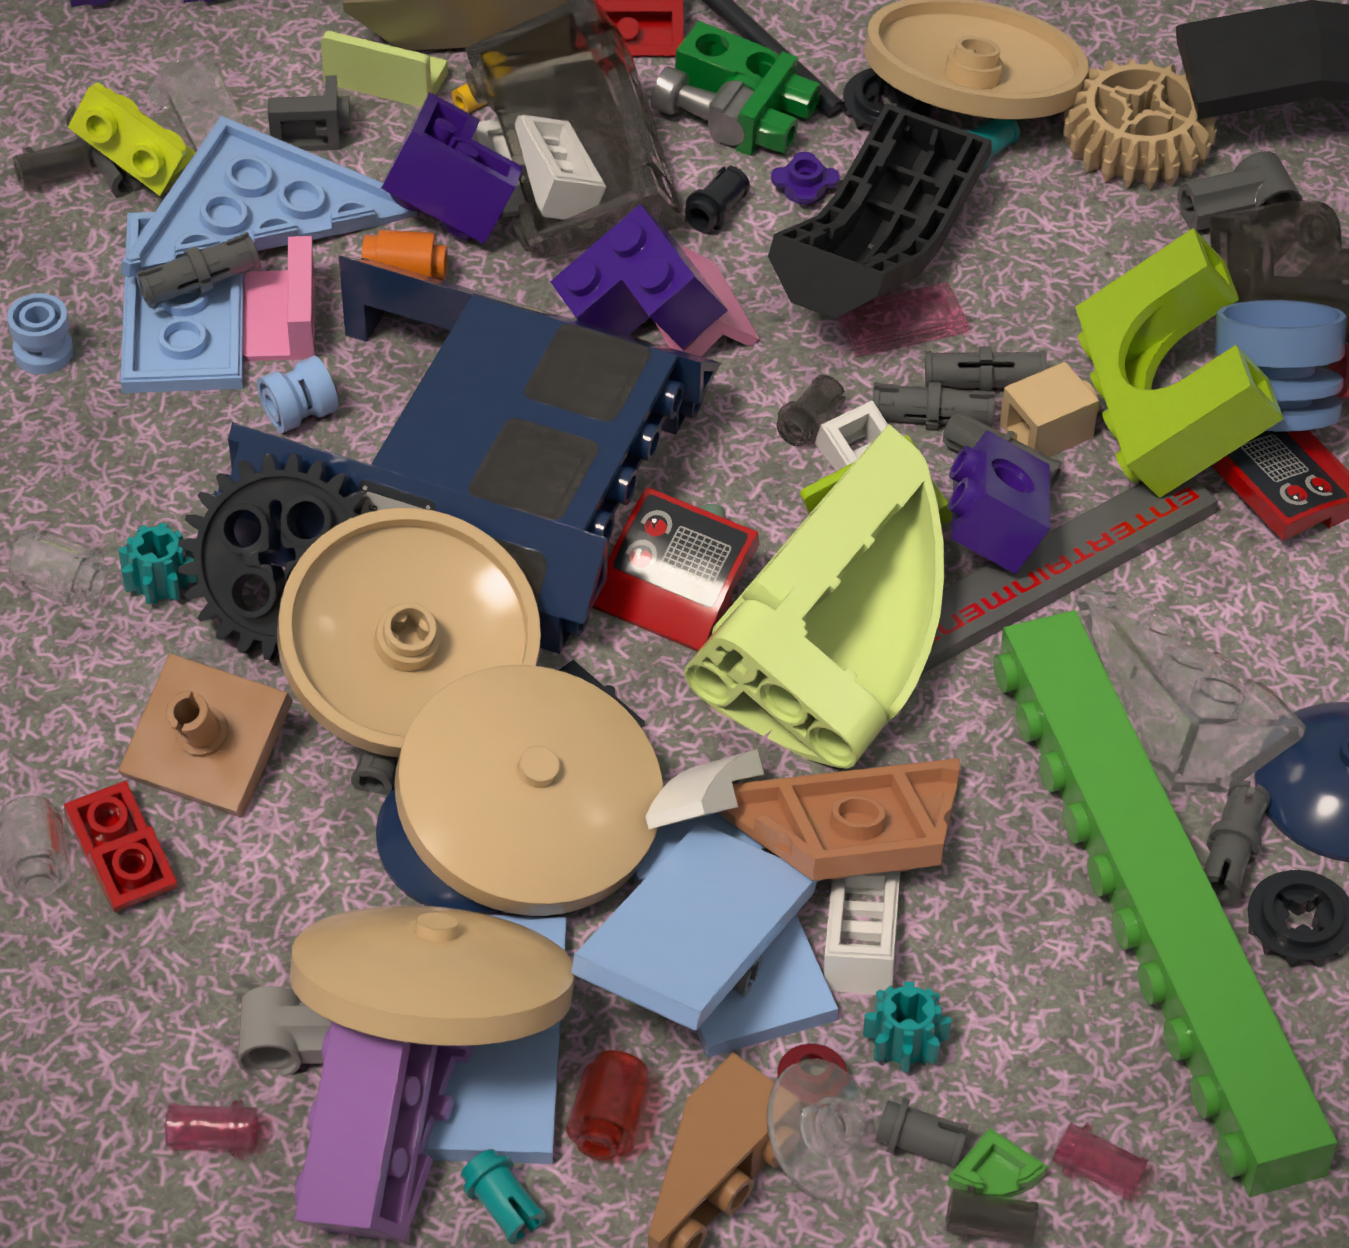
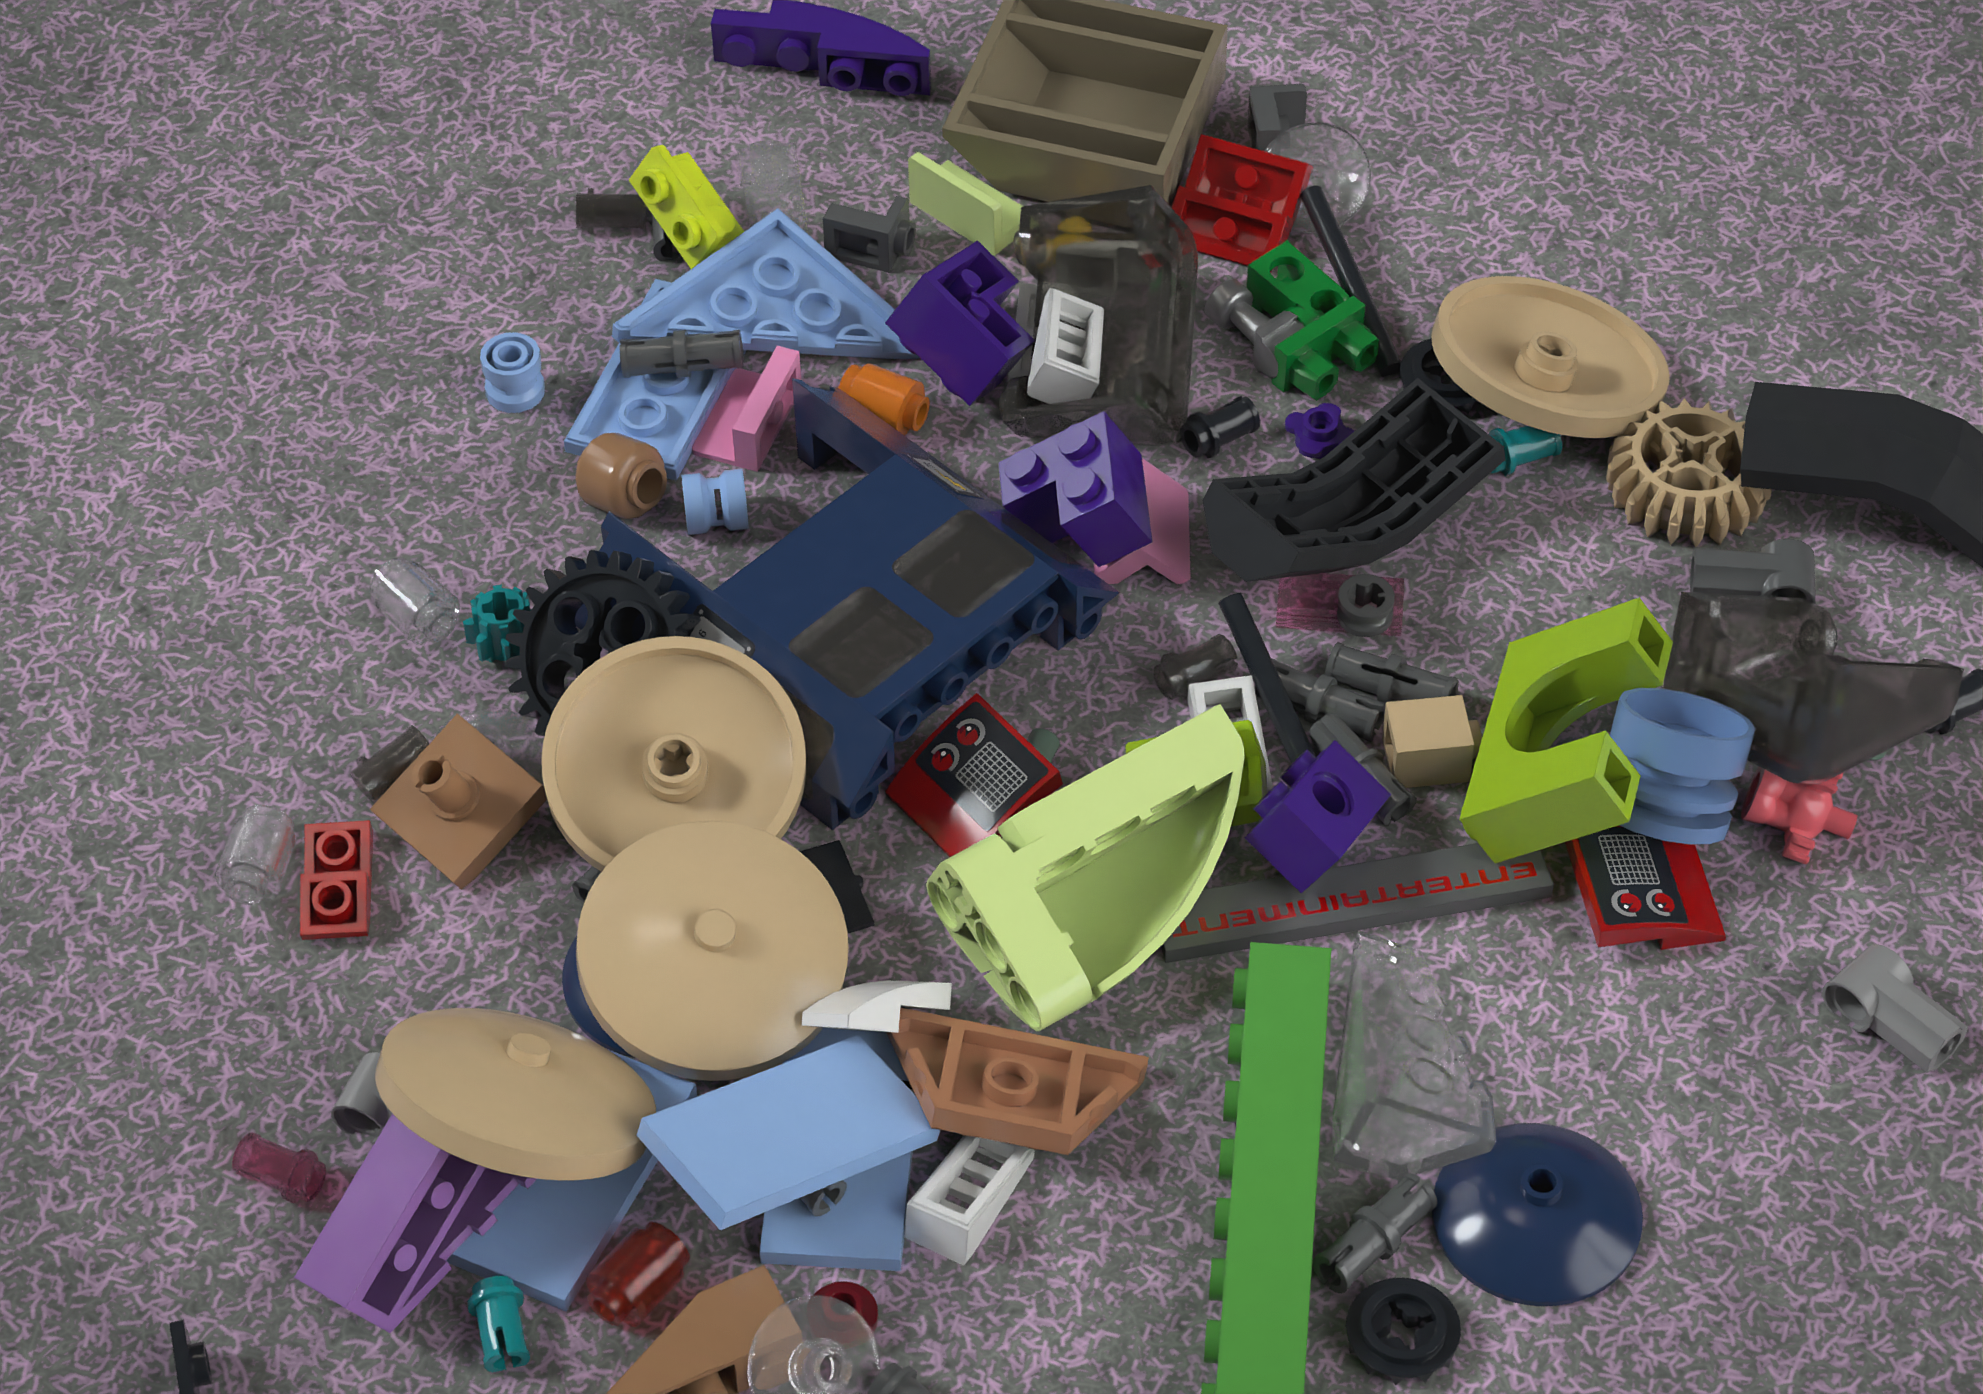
camera: 25 degrees right, 0 degrees up
(111, 734) = (383, 768): none -> clear smoke pin
(196, 396) = (621, 475): none -> medium nougat head
(887, 401) = (1265, 676): none -> black bar
(907, 1025) = (951, 1317): teal gear -> none
(933, 327) = (1363, 590): none -> dark grey bush

